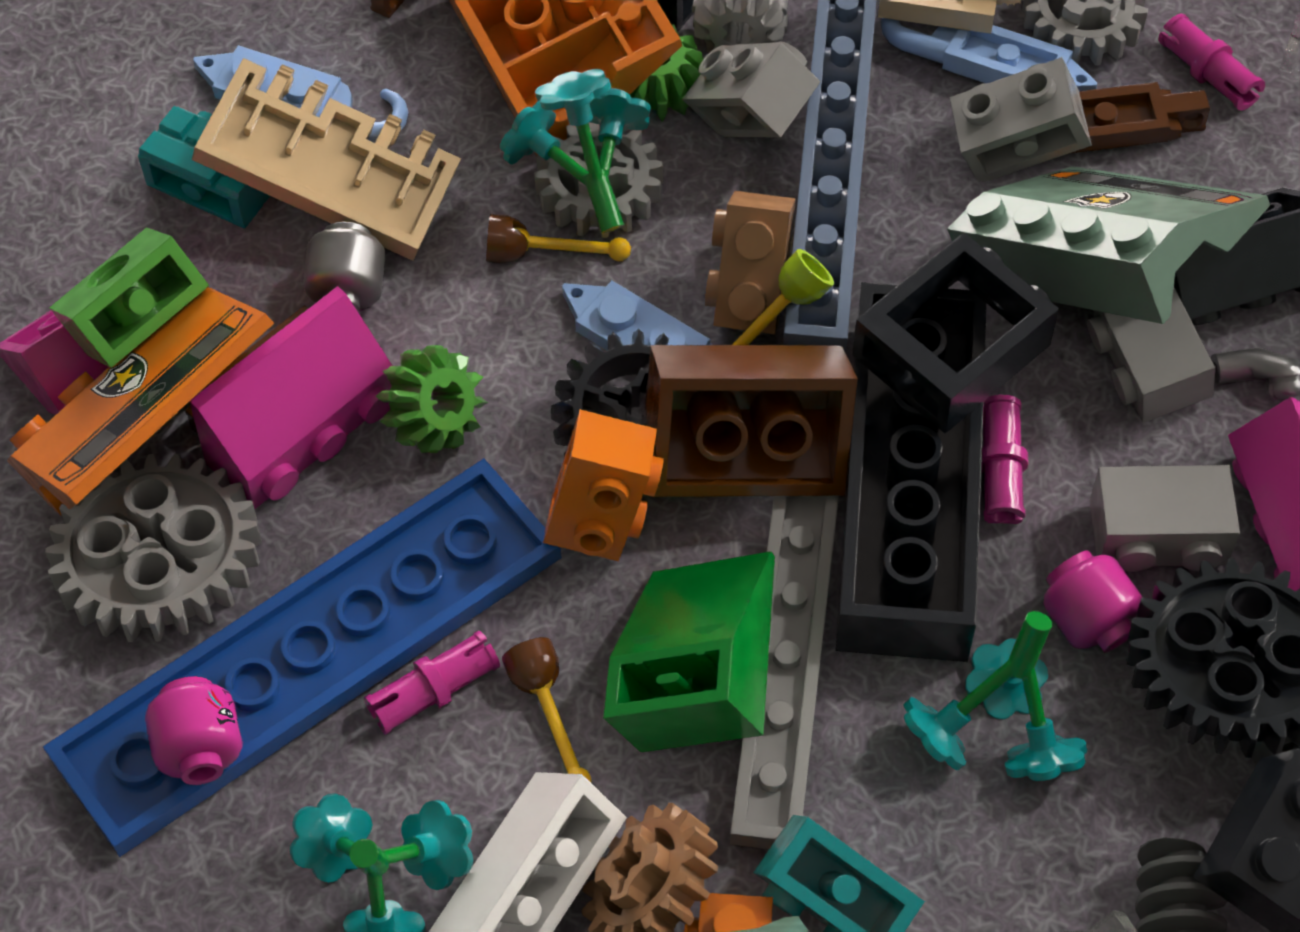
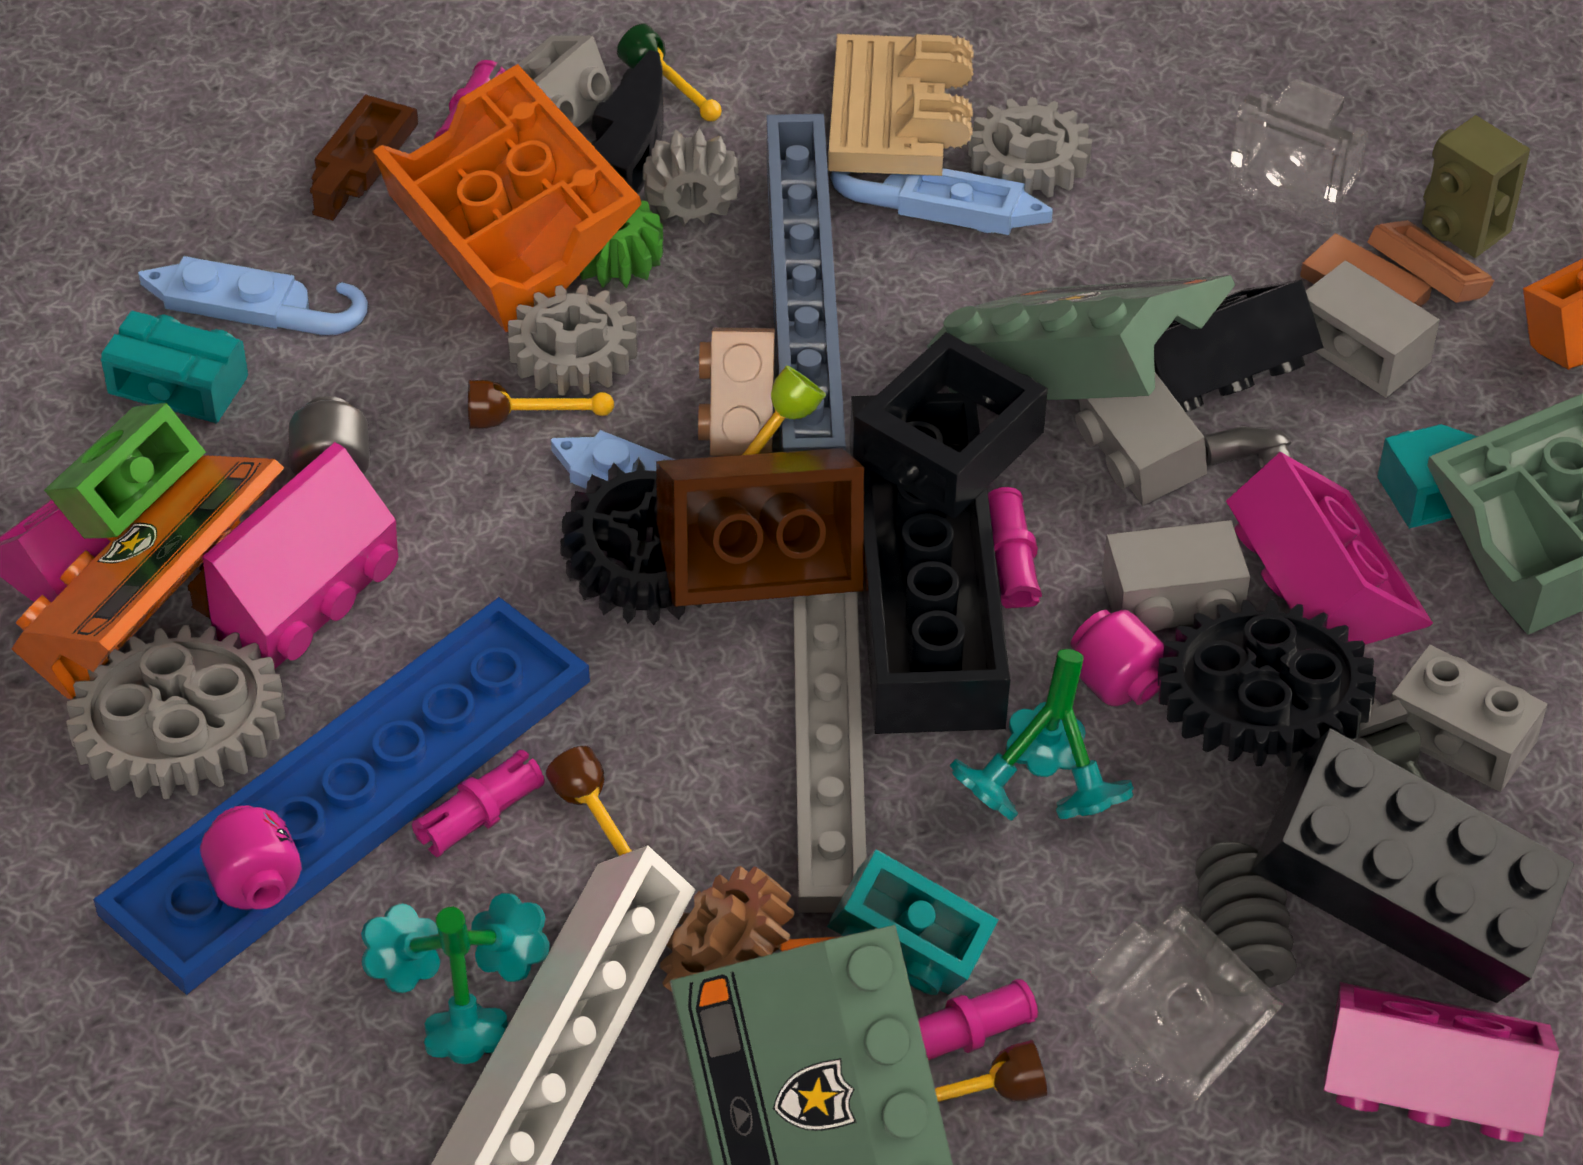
camera: 10 degrees left, 10 degrees down
(325, 160) = (294, 344): tan hinge -> none
(426, 421) = (438, 547): bright green gear -> none
(586, 100) = (578, 269): teal plant -> none
(602, 486) = (625, 598): orange brick -> none
(694, 656) = (739, 746): green slope -> none
(751, 89) = (714, 240): light grey brick -> none
(1020, 120) = (983, 247): light grey brick -> none
(1141, 115) = (1080, 239): reddish brown hinge -> none
(1211, 62) = (1160, 183): dark pink pin -> none

